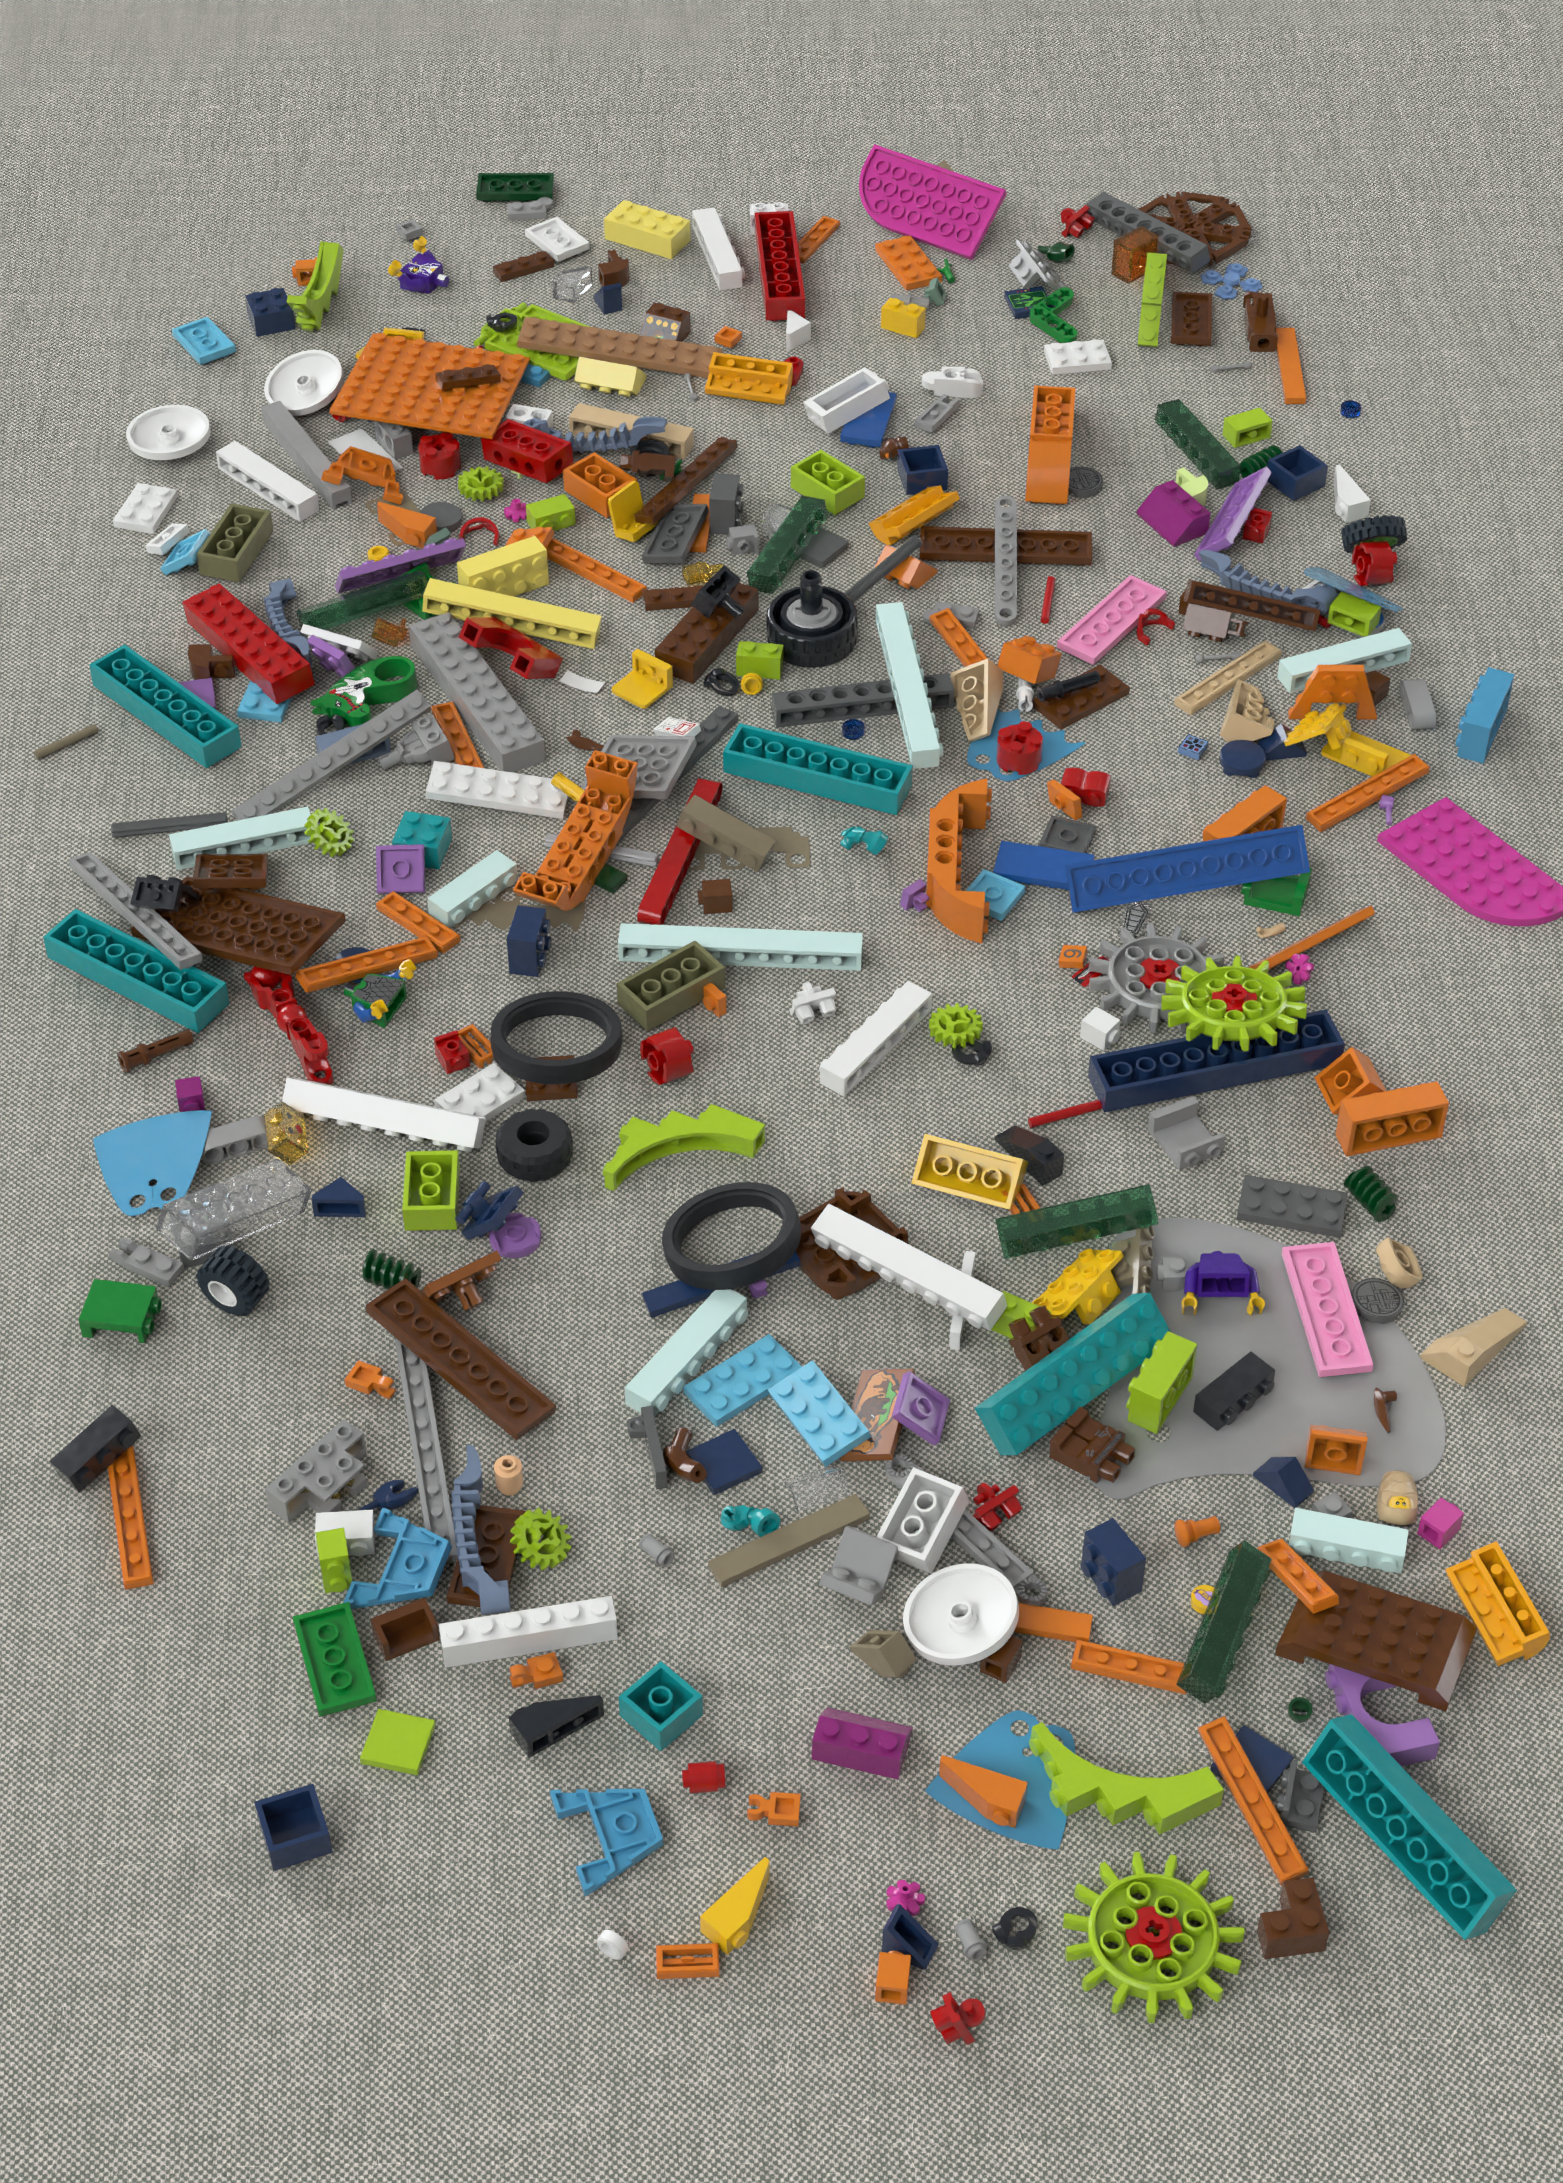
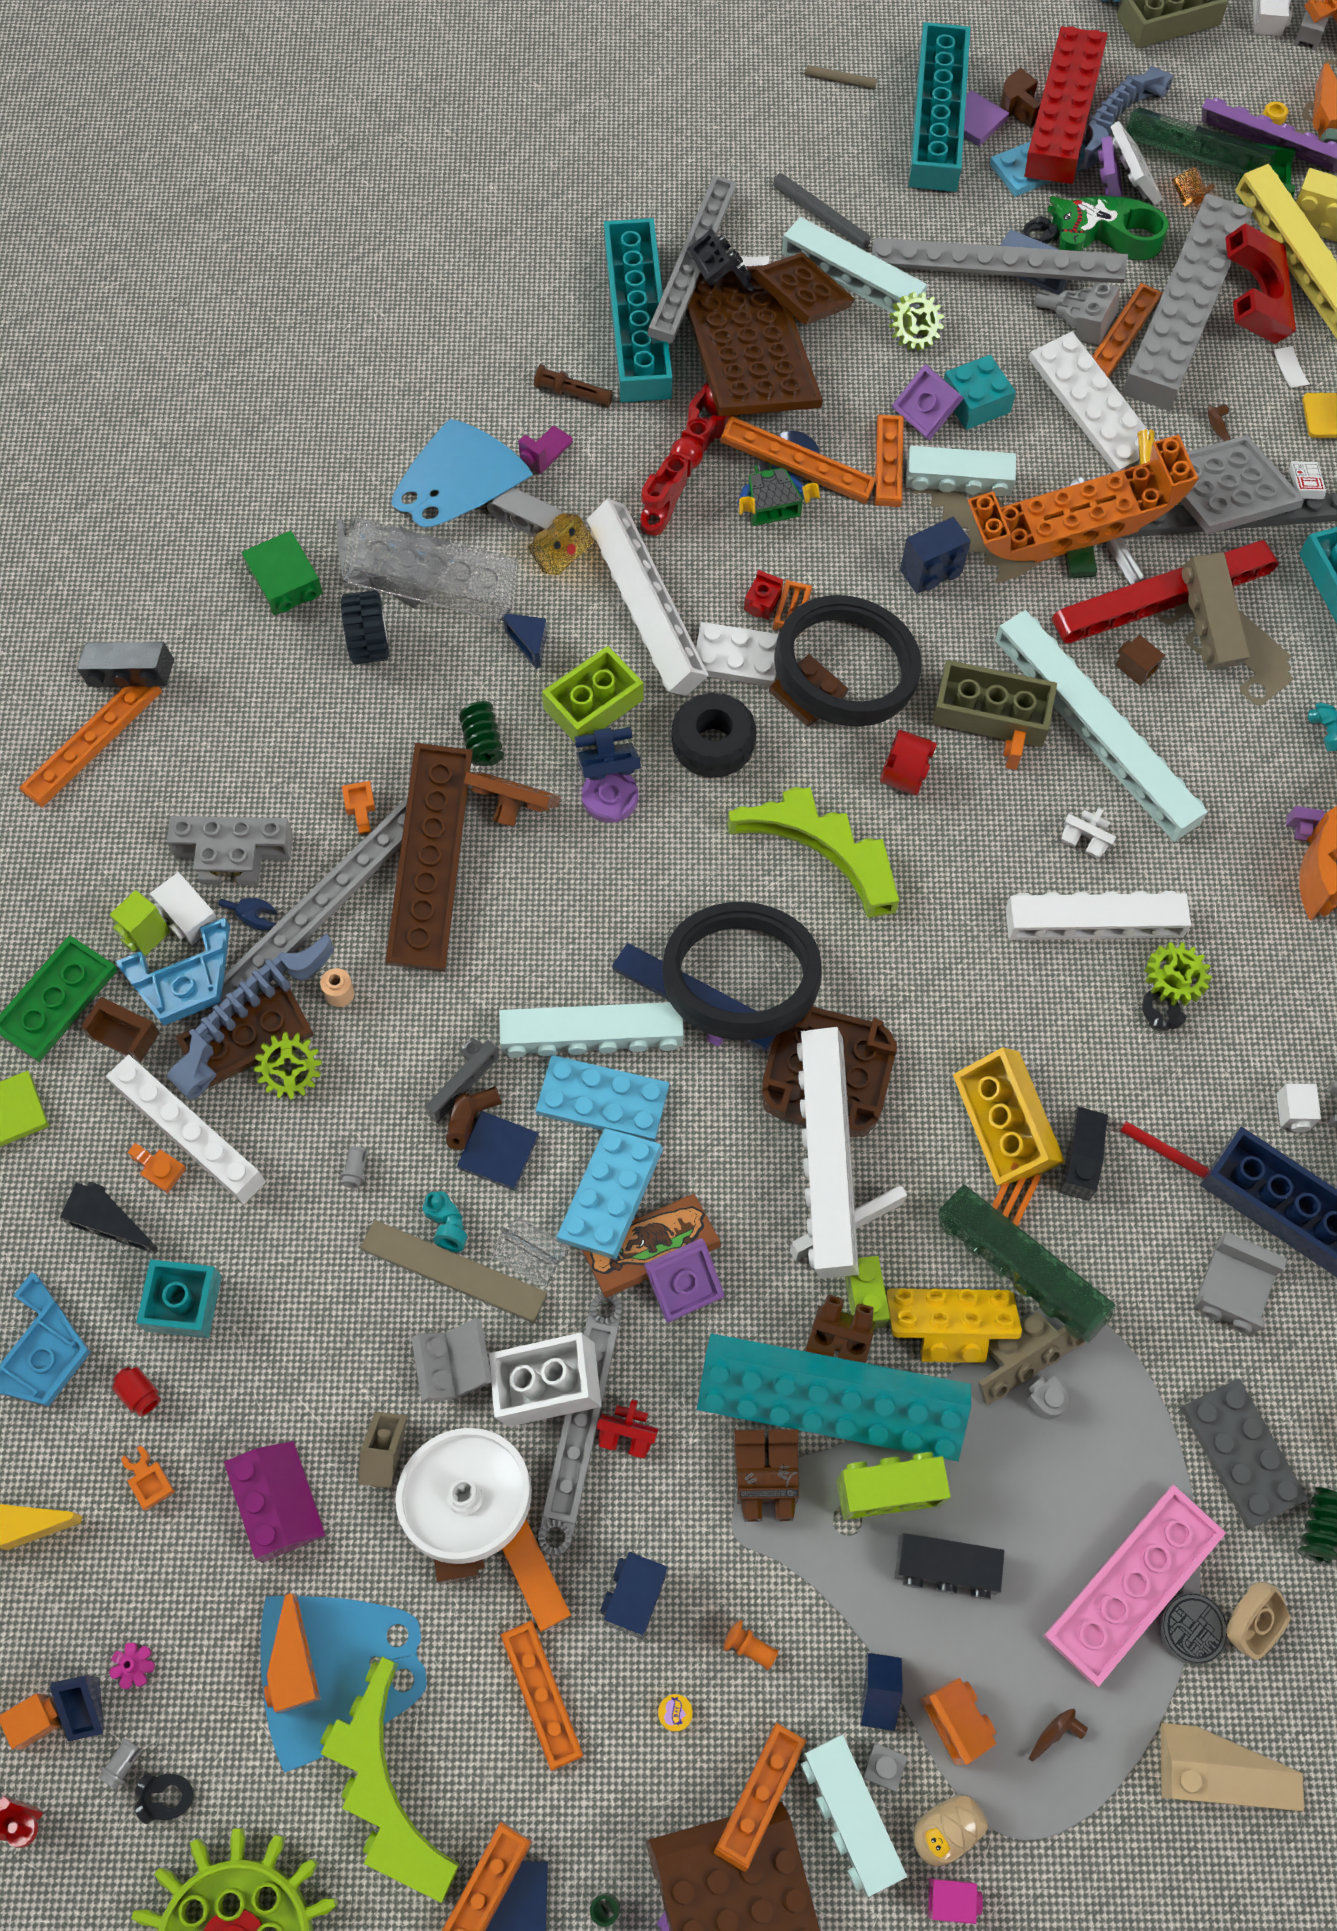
camera: 50 degrees right, 20 degrees up
(1221, 1276) = (1079, 1451): dark purple torso -> none
(1224, 1622) = (652, 1757): clear green brick -> none

